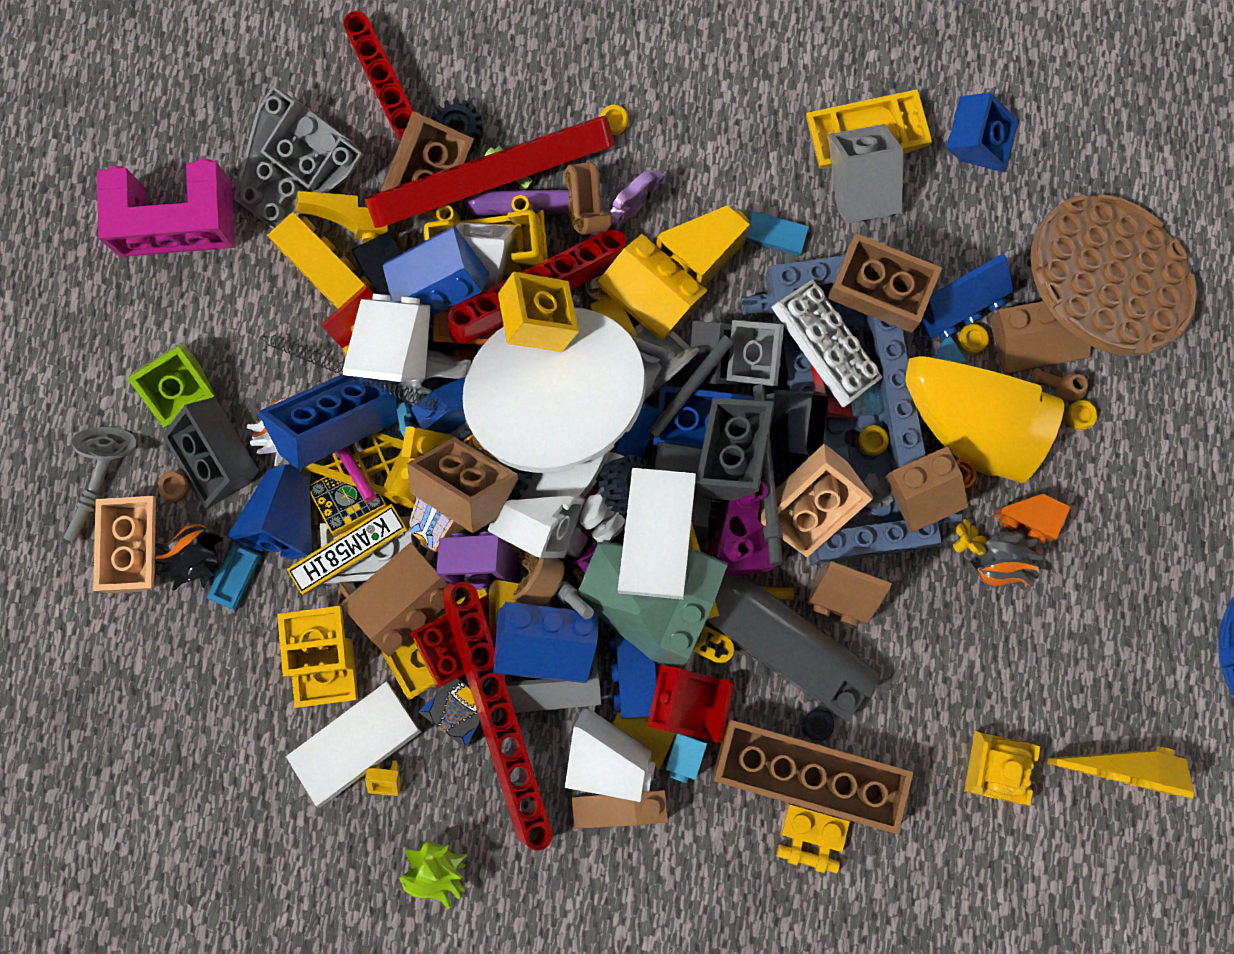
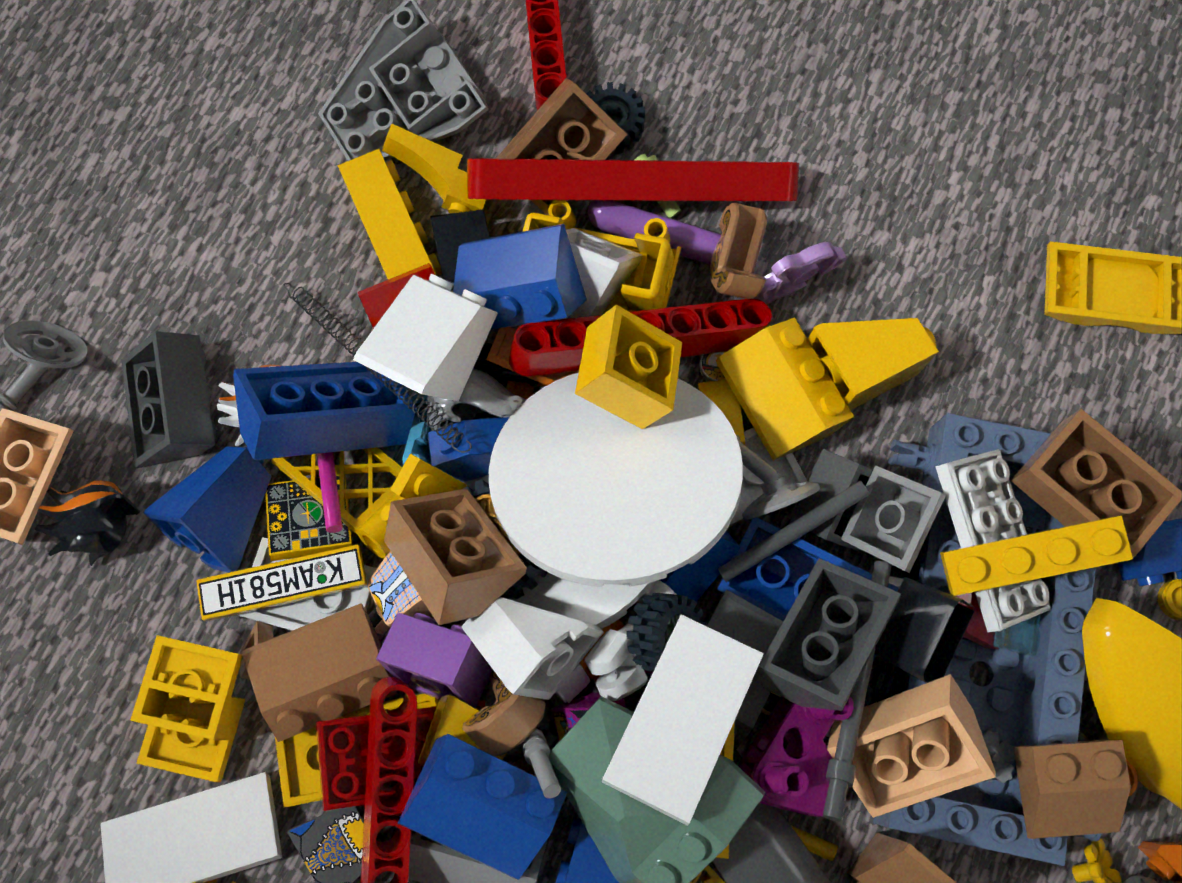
camera: 20 degrees right, 5 degrees down
(139, 229) = (191, 106): dark pink piece -> none
(171, 383) = (154, 299): lime slope -> none
(173, 486) = (108, 426): medium nougat tile -> none
(234, 576) = (133, 565): dark azure tile -> none
(617, 118) = (810, 171): yellow tile -> none
(776, 233) = (964, 377): dark azure tile -> none
(855, 344) = (1036, 555): none -> yellow plate
(867, 173) = (1108, 340): light grey slope -> none
(872, 440) = (1008, 687): yellow tile -> none
(949, 351) = (1144, 602): dark azure tile -> none

